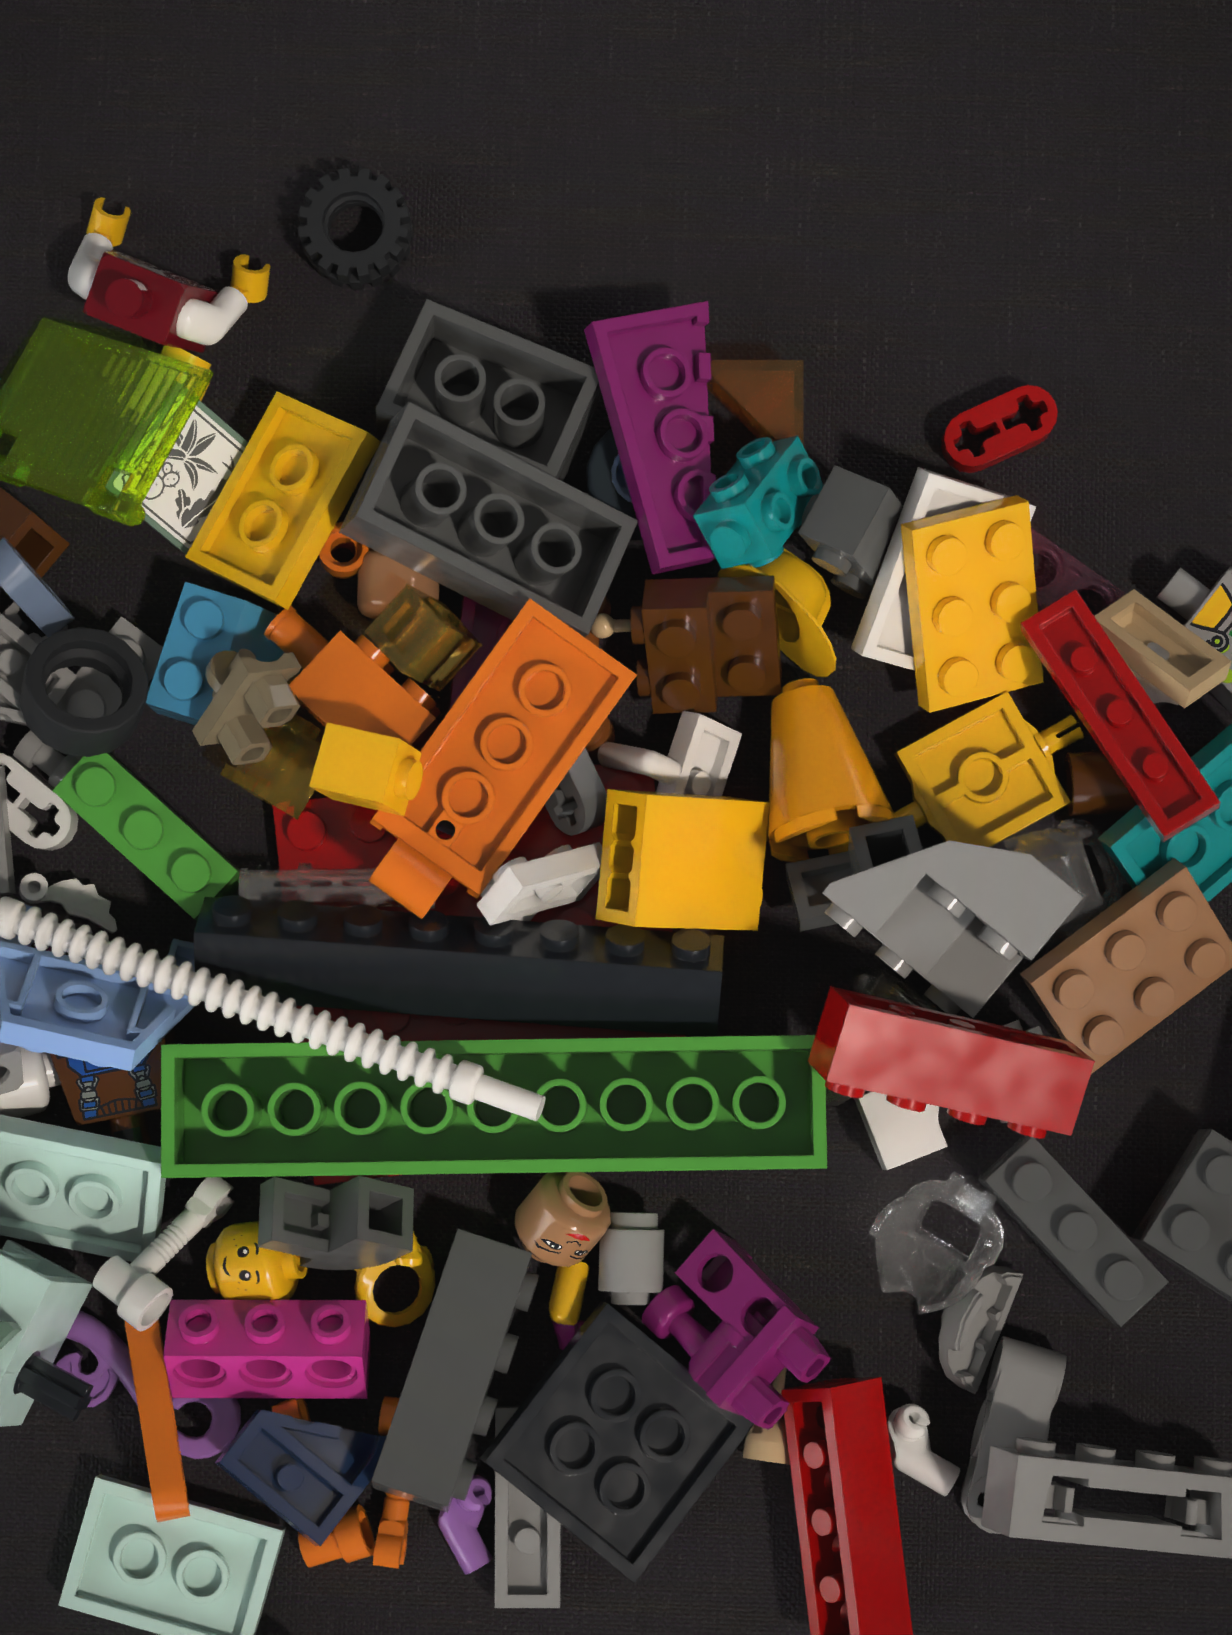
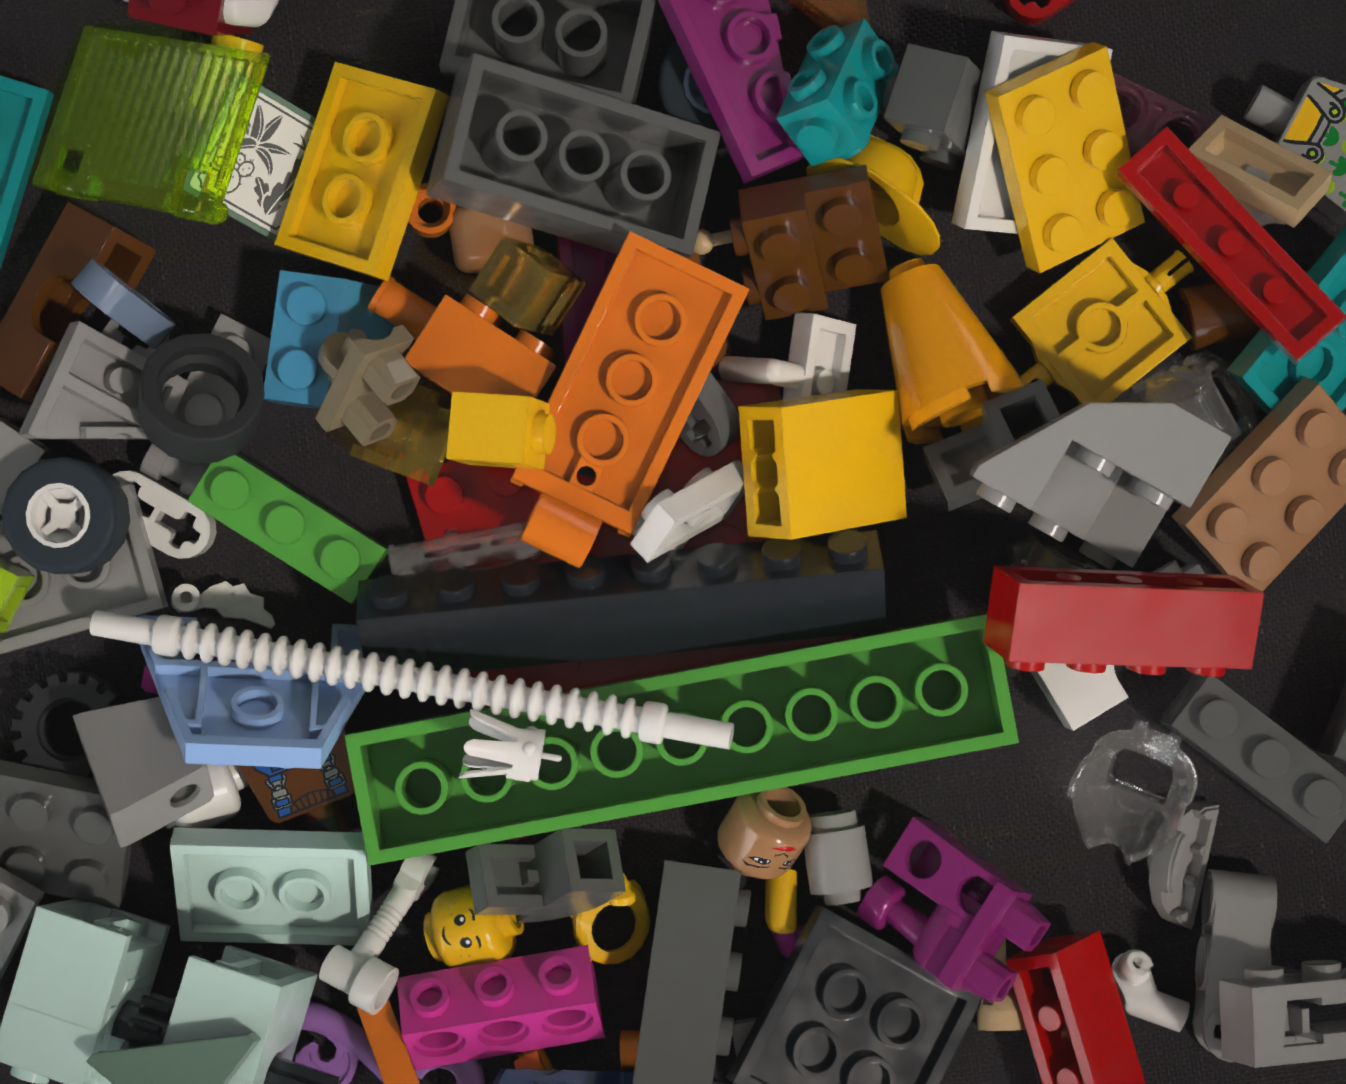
camera: 10 degrees left, 5 degrees up
(321, 1088) = (514, 756): none -> white piece

